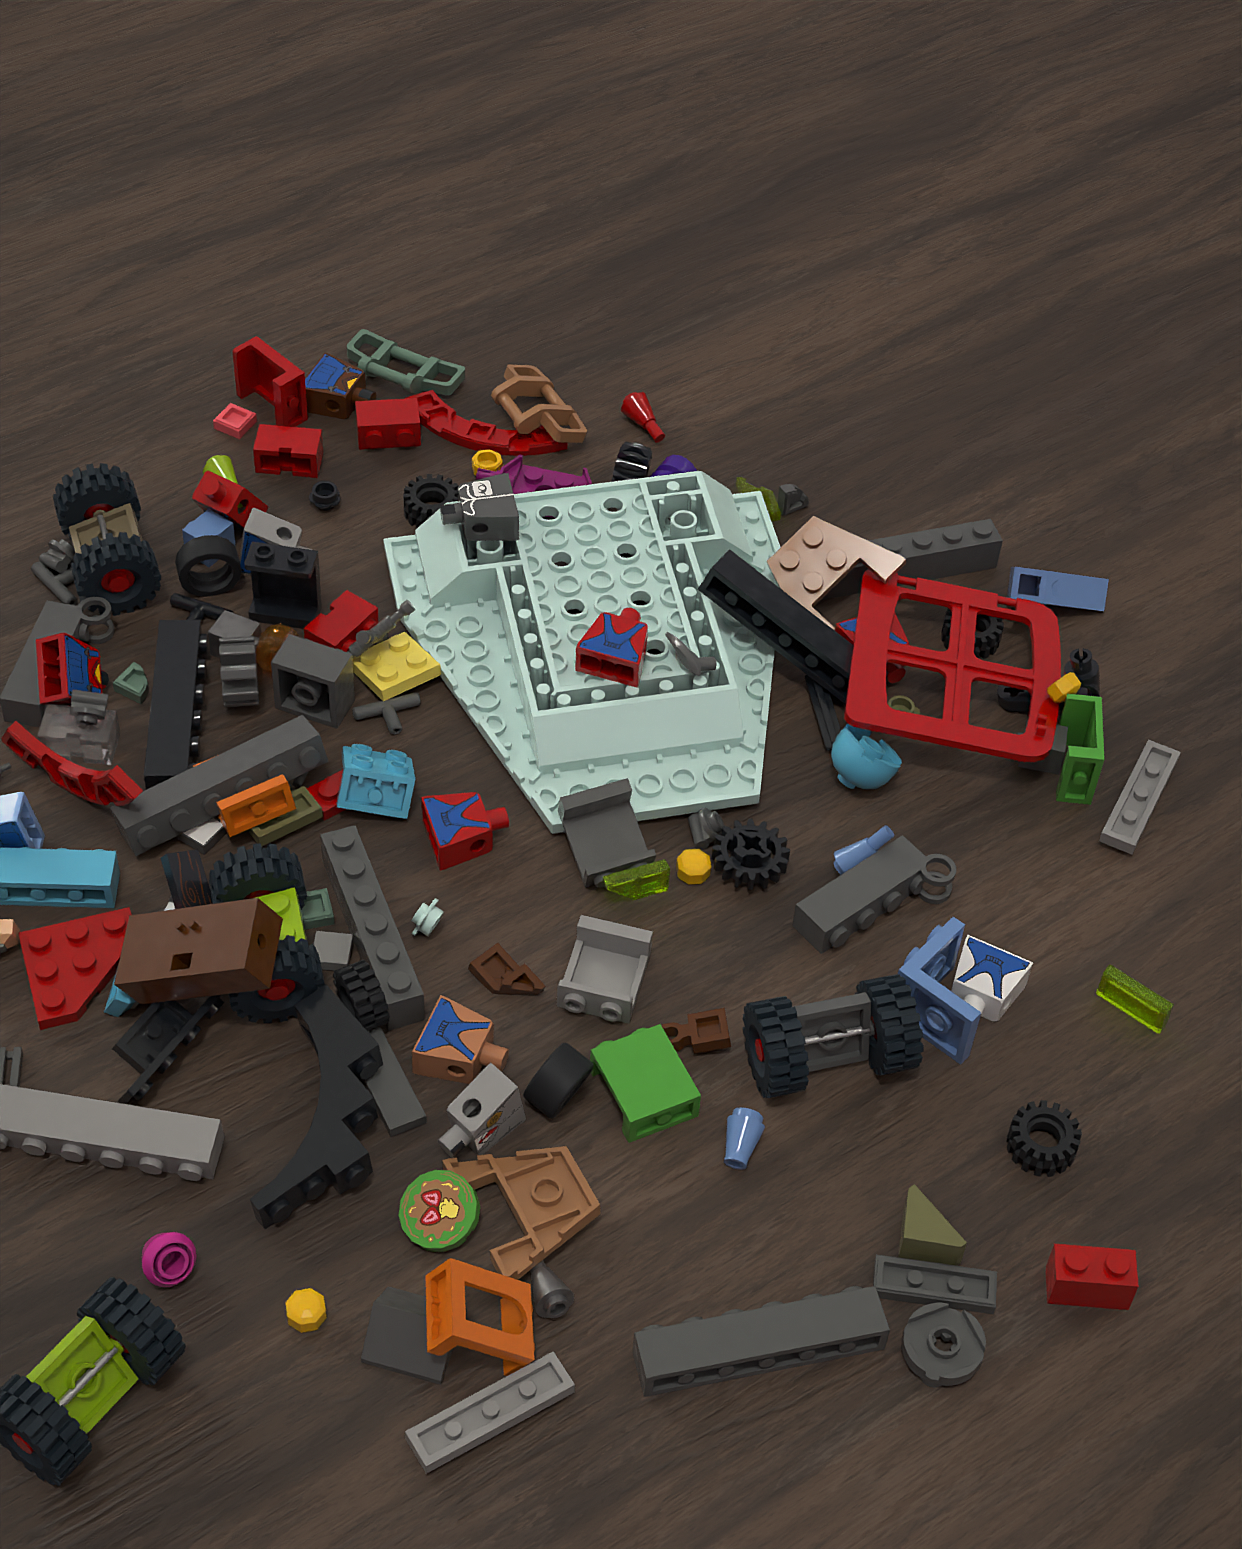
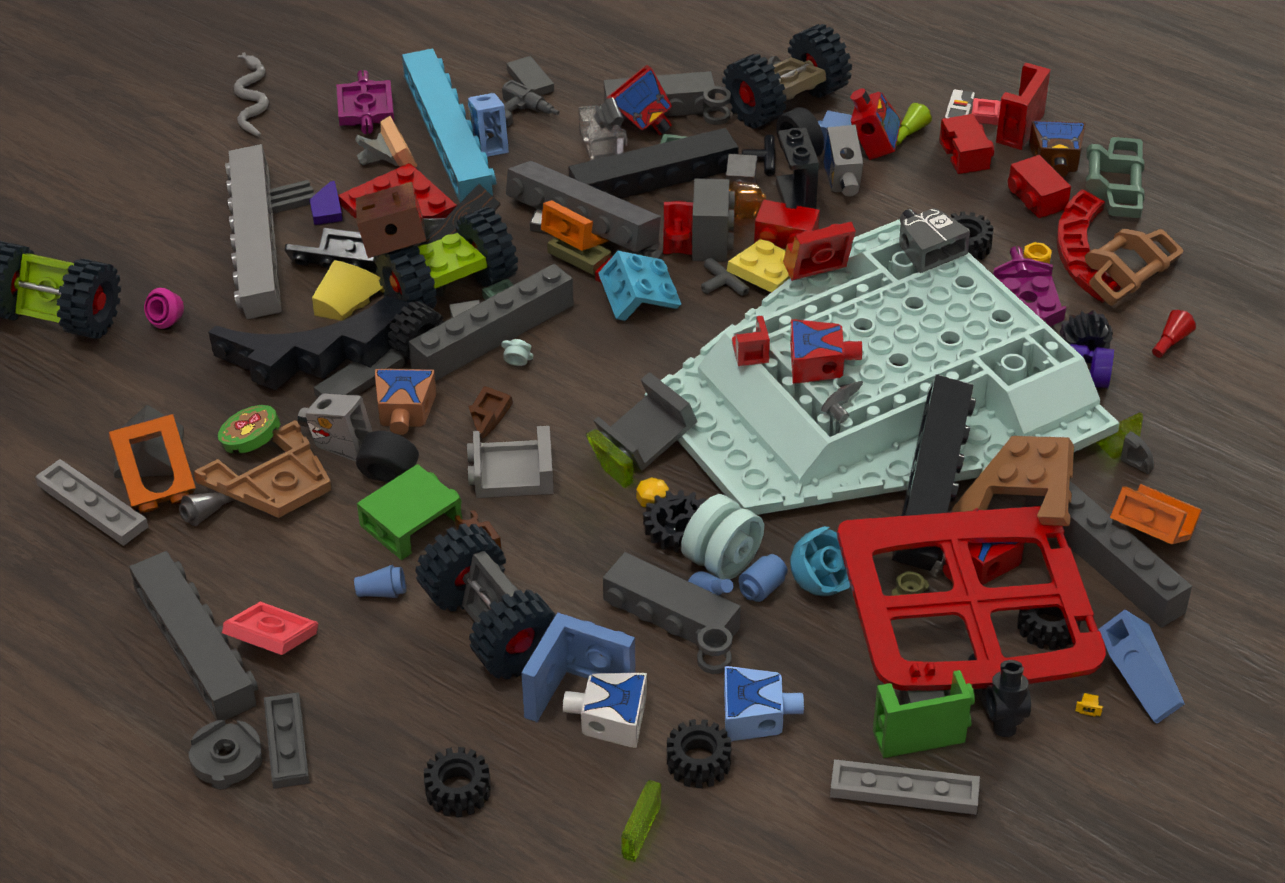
camera: 75 degrees right, 5 degrees down
(44, 1041) = (326, 205): none -> dark purple tile
(88, 784) = (549, 148): red tile -> none
(207, 436) = (959, 103): none -> sticker
(227, 1057) = (344, 290): none -> light yellow slope
(239, 671) = (699, 168): dark grey gear -> none
(305, 1310) = (149, 390): yellow tile -> none
(306, 702) = (678, 227): none -> red hips
(325, 495) = (933, 178): black plate -> none
(379, 632) = (766, 231): dark grey piece -> none
(435, 604) = (819, 250): none -> red plate
(460, 826) = (614, 344): red torso -> none
(574, 694) = (752, 347): none -> red panel
(705, 827) = (700, 484): dark grey plate -> none
(782, 1257) = (270, 628): none -> coral plate
(809, 817) = (722, 537): none -> light aqua wheel
(853, 812) = (762, 577): none -> medium blue brick
(888, 514) = (1156, 514): none -> orange panel
(927, 1233) = (331, 714): olive slope -> none
(1014, 870) = (756, 703): none -> light blue torso
(1064, 916) = (698, 737): none -> black tyre
(1065, 685) = (976, 672): yellow tile -> none
(1073, 642) = (1089, 705): none -> yellow piece
(1091, 1276) = (317, 836): red brick -> none

